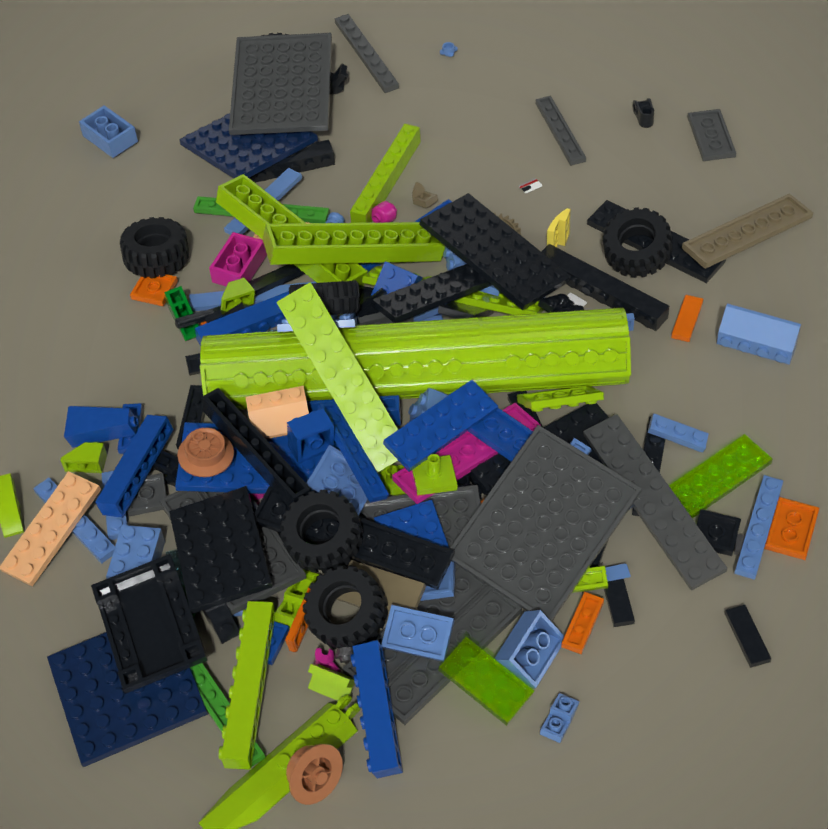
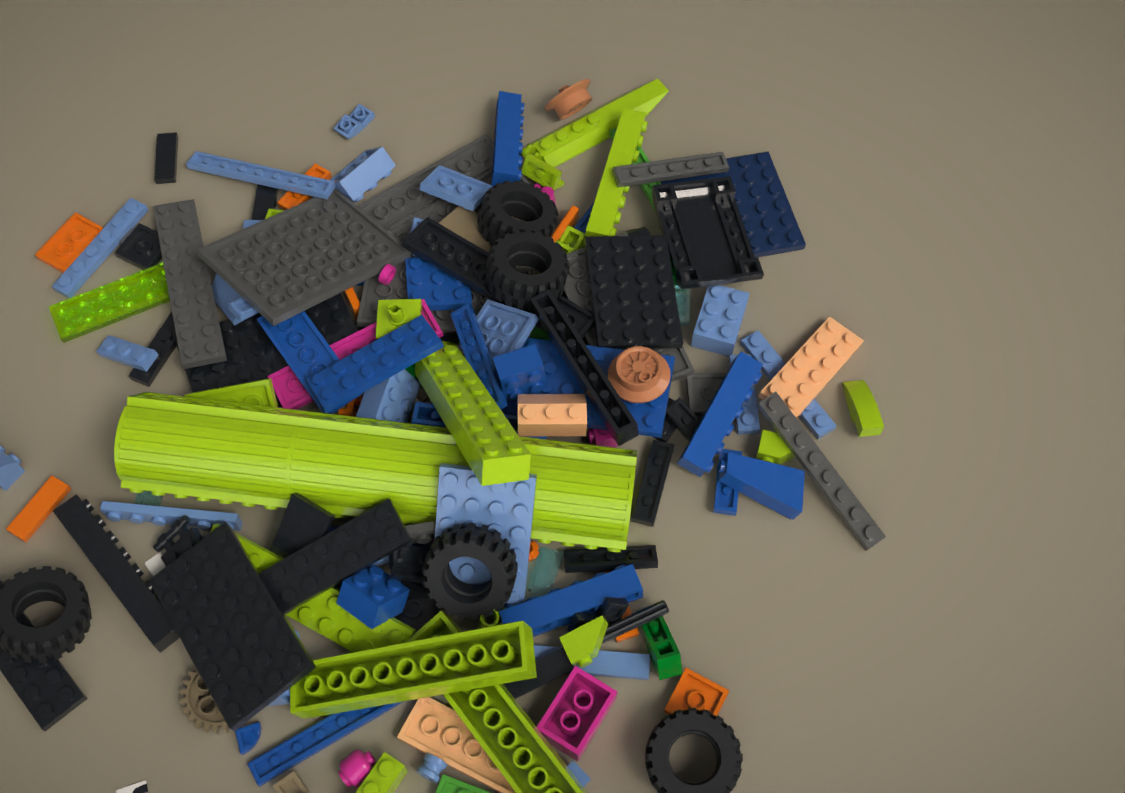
camera: 175 degrees left, 10 degrees up
(52, 441) = (821, 471): none -> dark grey plate
(188, 694) = (670, 169): none -> dark grey tile
(459, 525) = (387, 274): none -> dark pink tile
(486, 680) = (408, 150): clear neon green plate -> none
(559, 229) = (128, 669): light yellow slope -> none
(634, 623) = (261, 175): none -> medium blue tile

